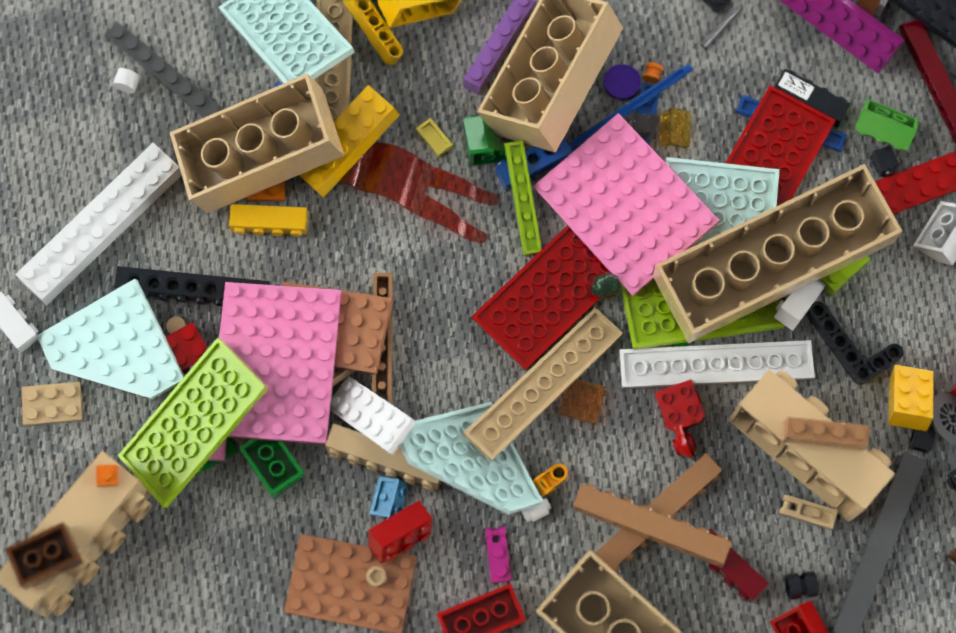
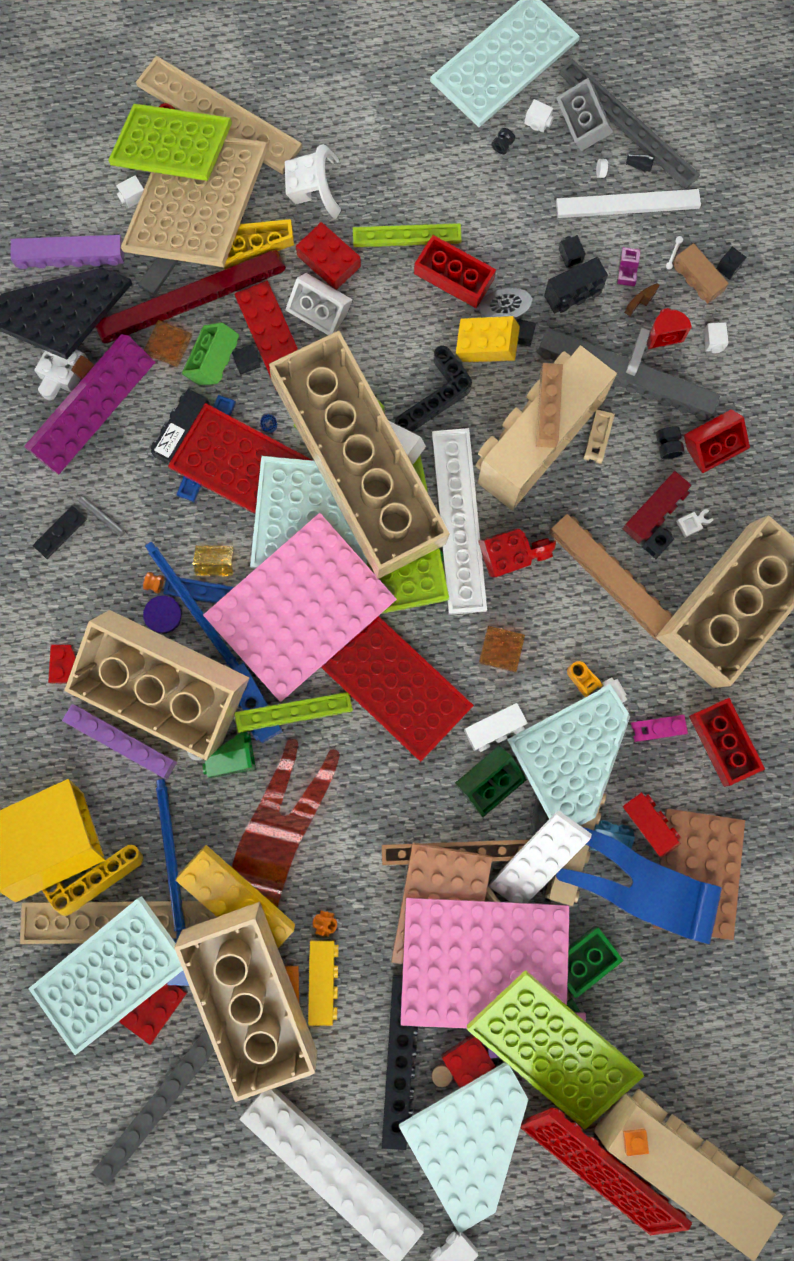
camera: 90 degrees left, 5 degrees up
(44, 555) = (732, 1207): reddish brown brick -> none
(52, 403) = (532, 1208): tan plate -> none
(79, 460) = (605, 1173): none -> red plate
(126, 80) = (163, 1156): white piece -> none
(251, 71) = (154, 1012): none -> red plate
(321, 223) = (324, 923): none -> orange gear
(332, 530) = (655, 893): none -> blue flag
(376, 576) = (693, 847): tan tile -> none
(394, 86) = (170, 858): none -> blue piece
(434, 137) = (225, 807): light yellow tile -> none
(449, 382) = (491, 781): none -> dark green slope
(497, 378) = (496, 727): none -> white brick
(542, 384) = (493, 687): tan plate -> none
(605, 286) = (387, 626): clear green head -> none
(645, 125) = (213, 589): clear smoke brick -> none
(651, 525) = (629, 579): medium nougat brick -> none
(683, 566) = (653, 548): none -> black brick
(712, 603) = (692, 523): none -> white plate
(816, 176) = (266, 418): none -> clear blue bush
(900, 87) = (168, 343): none -> clear orange plate
(901, 553) = (637, 352): none -> light grey beam
(928, 588) = (668, 329): none -> red brick

